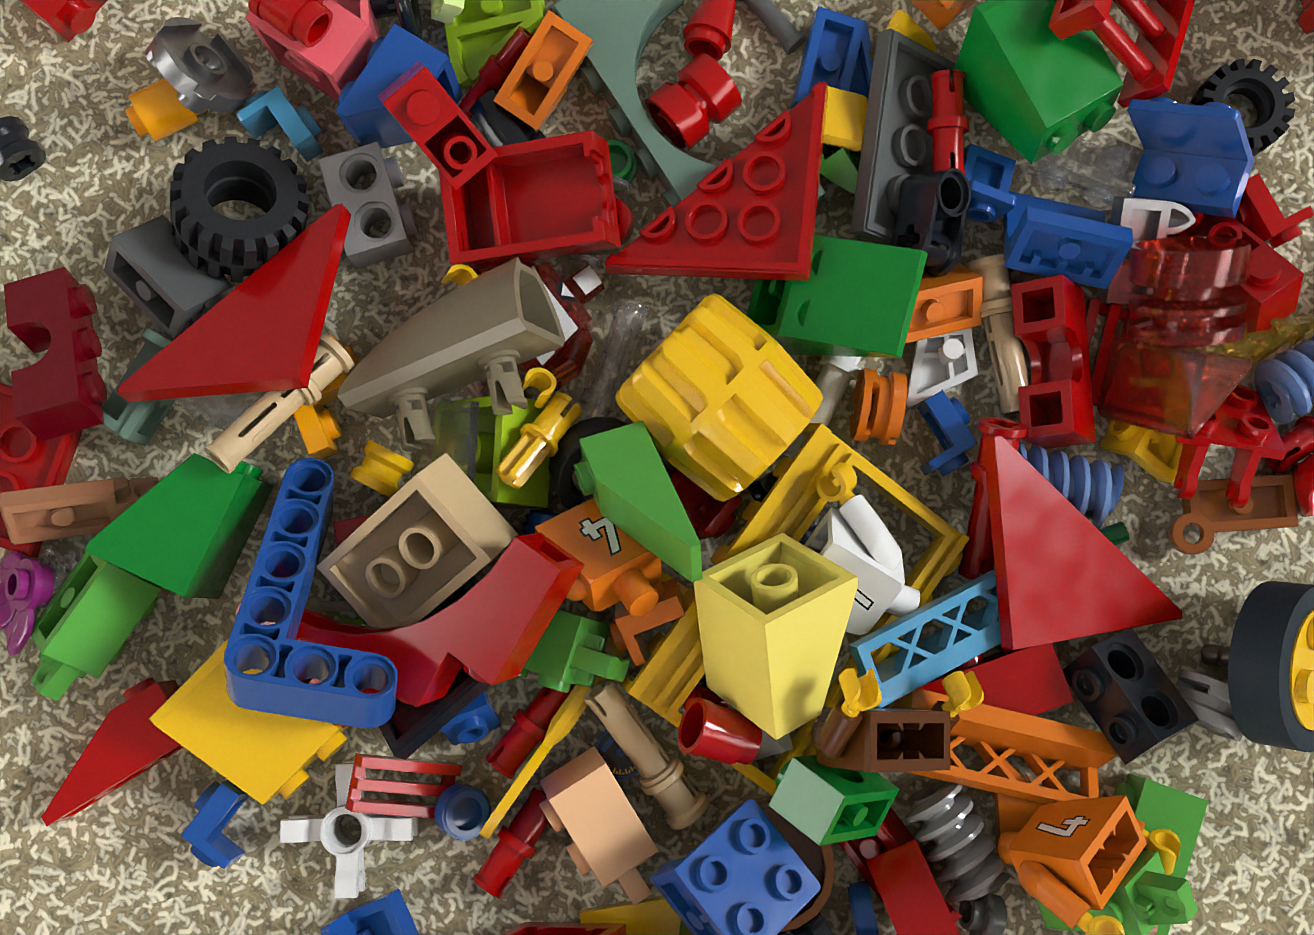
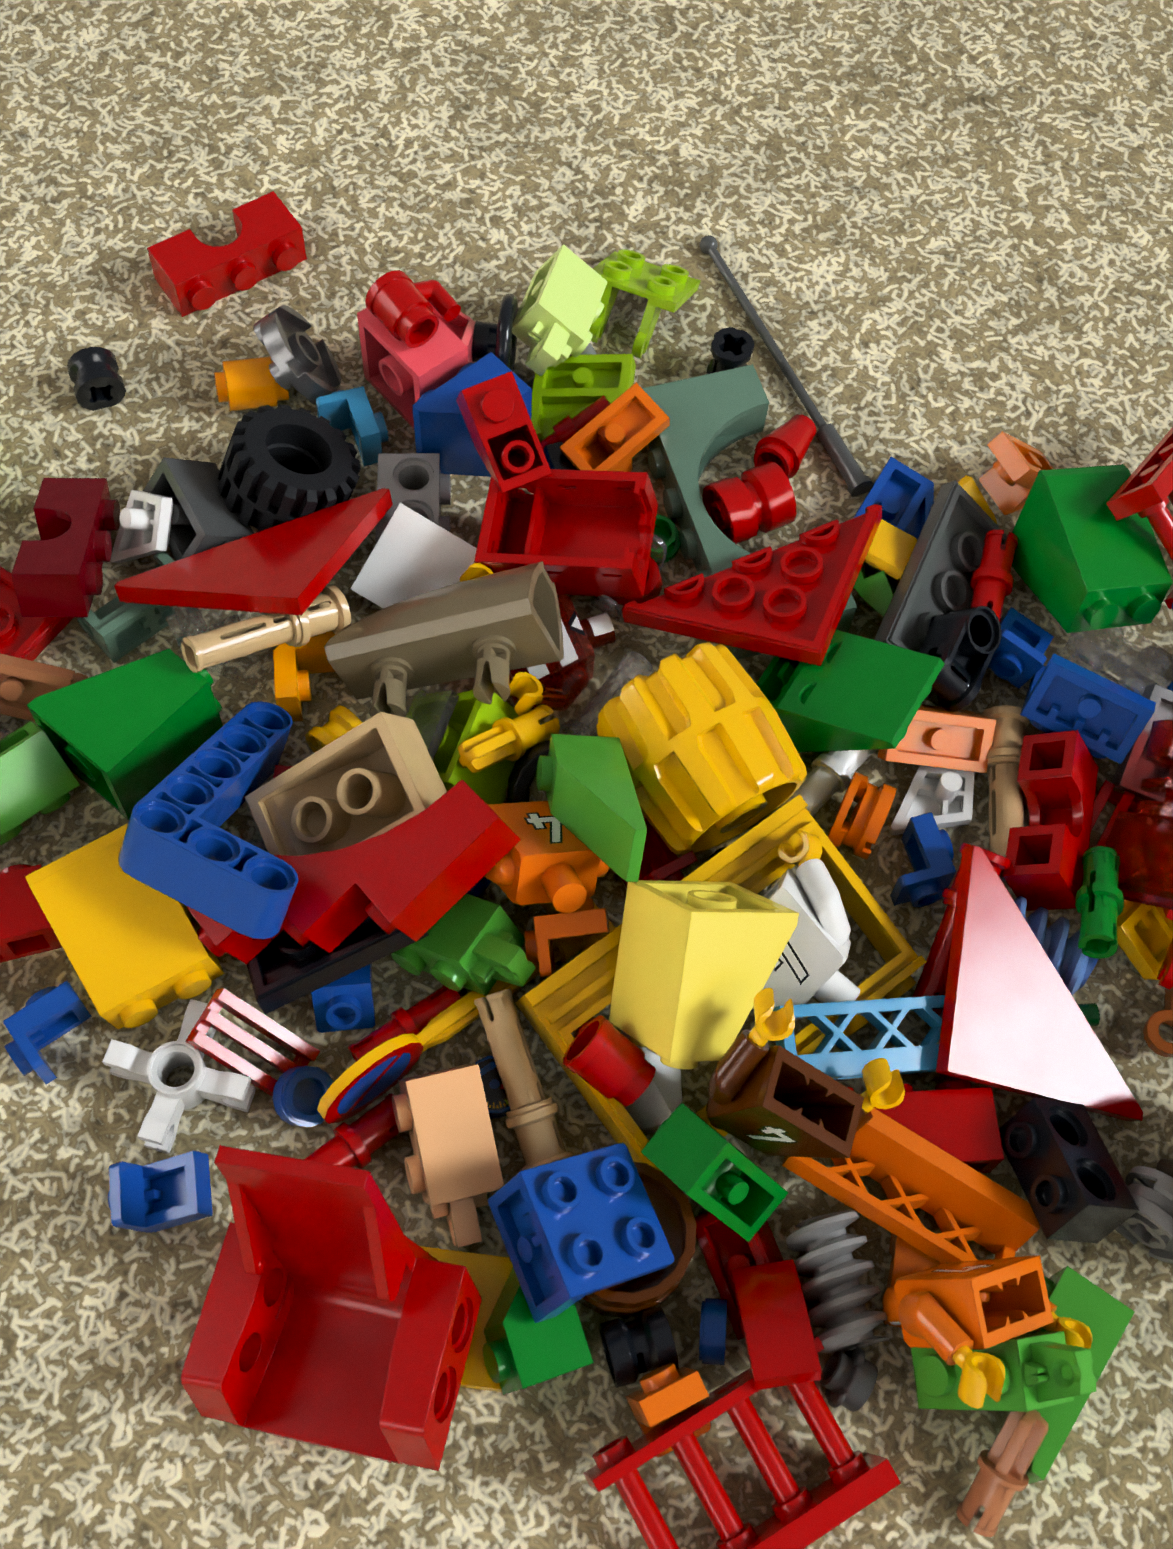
camera: 10 degrees right, 20 degrees down
(120, 307) = (143, 527): none -> white piece
(394, 271) = (412, 560): none -> white sticker
(1114, 441) = (1099, 902): none -> green pin

